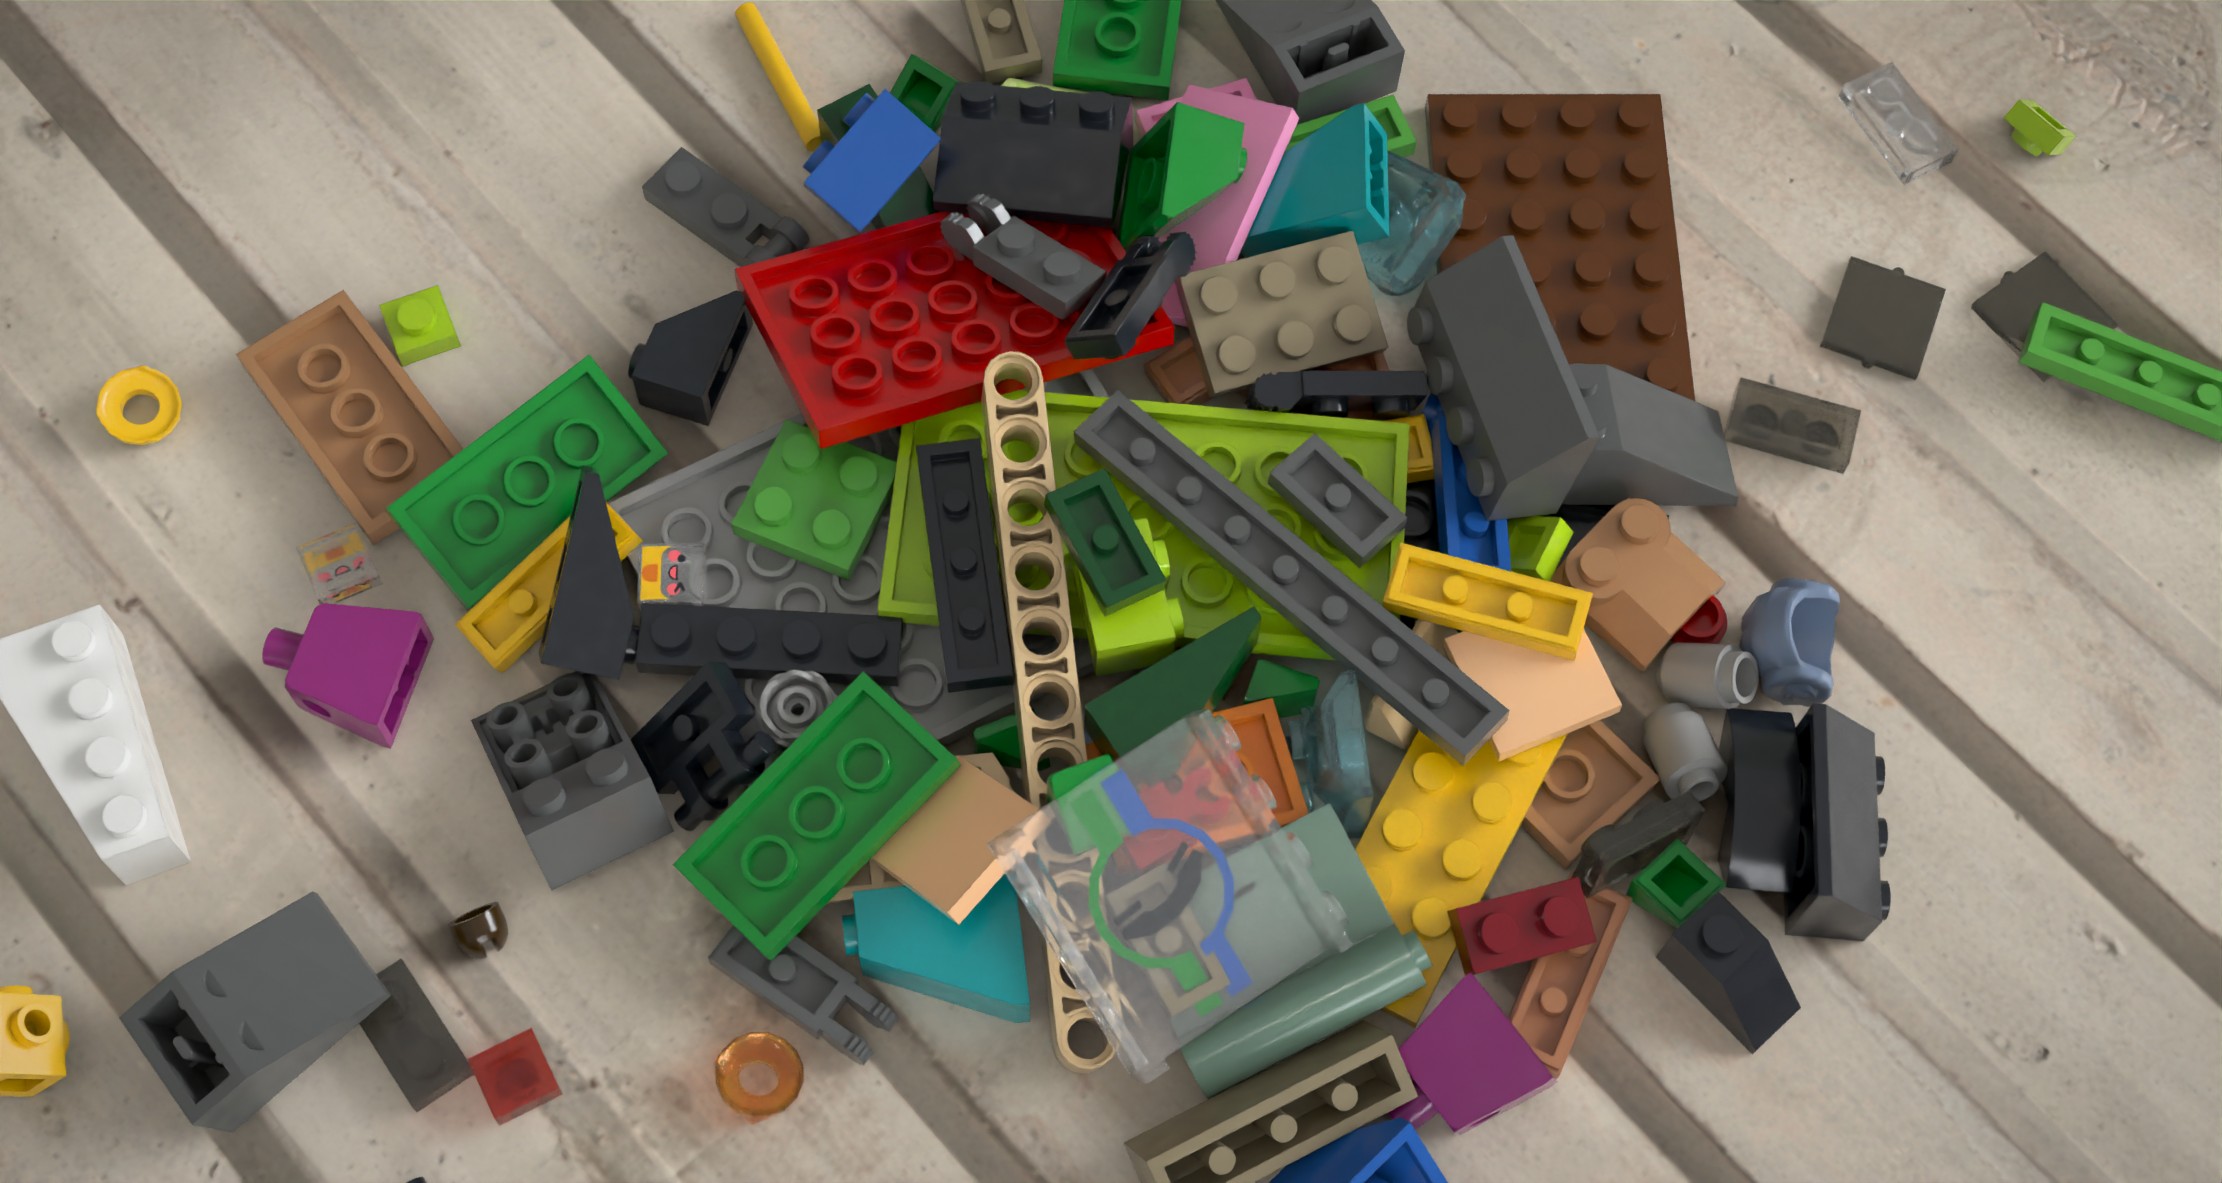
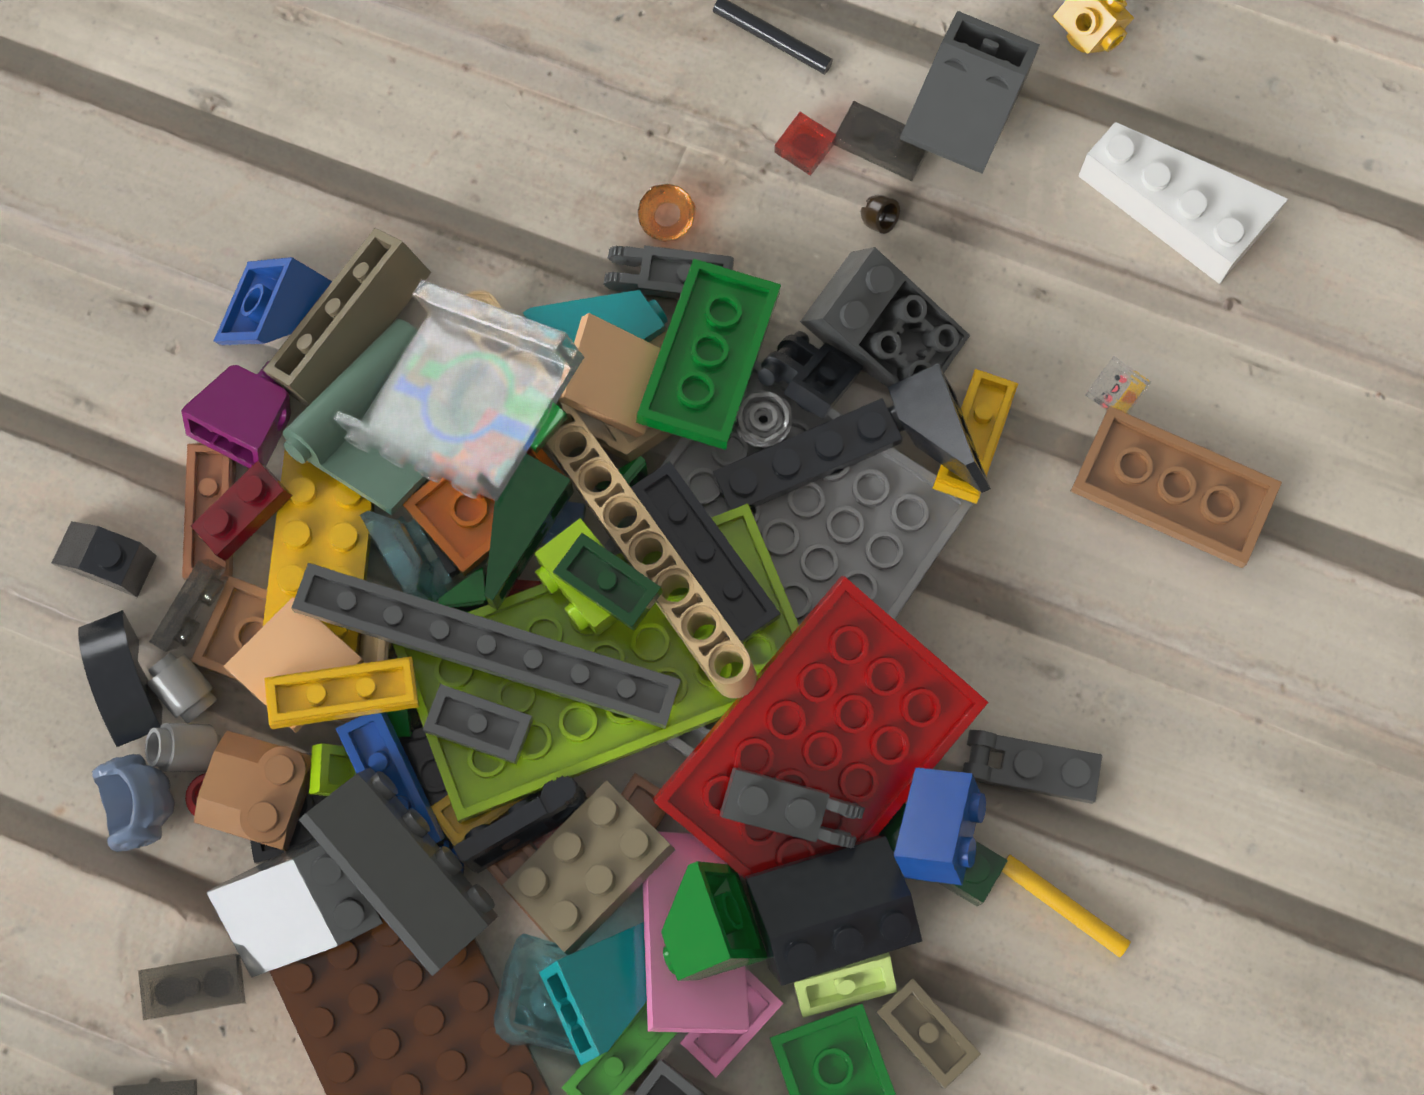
camera: 160 degrees right, 10 degrees up
(132, 383) = (1324, 405): yellow piece -> none
(353, 666) = (1060, 320): magenta torso -> none
(420, 325) = (1183, 575): lime plate -> none
(521, 480) = (1032, 492): green plate -> none
(672, 574) = (896, 469): clear tile -> none
(691, 358) = (983, 633): black slope -> none
(816, 500) = (826, 552): bright green plate -> none
(924, 90) = (949, 949): green slope -> none
(1130, 296) = (691, 798): black hinge -> none
(1674, 885) = (152, 591): green slope -> none
(1841, 837) = (57, 681): black slope -> none

